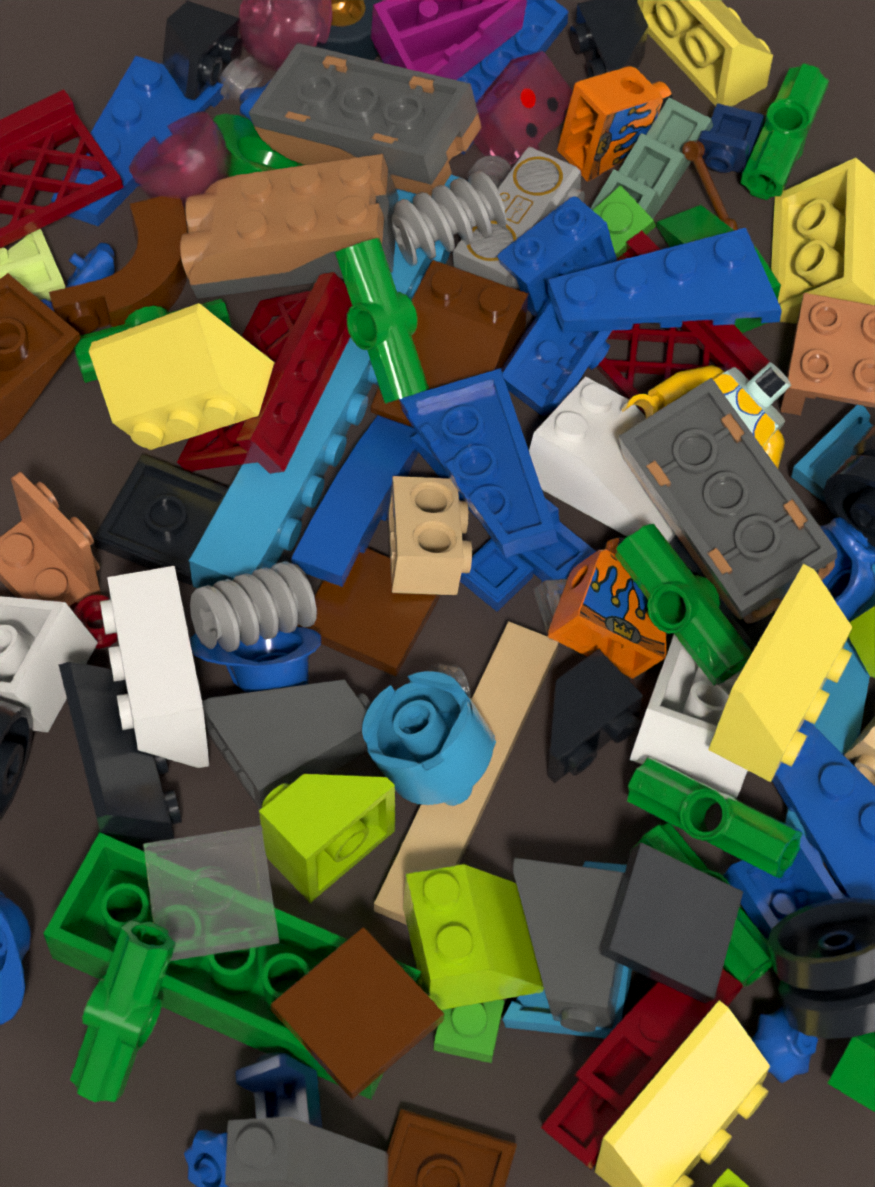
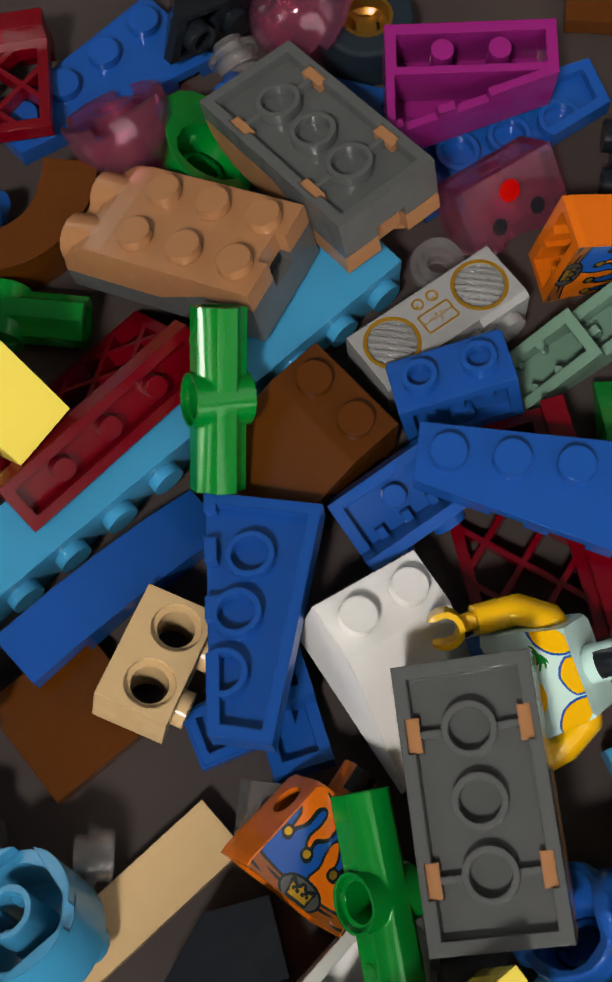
camera: 30 degrees right, 10 degrees up
(446, 214) = (345, 302): light grey piece -> none
(623, 218) = (546, 370): bright green plate -> none

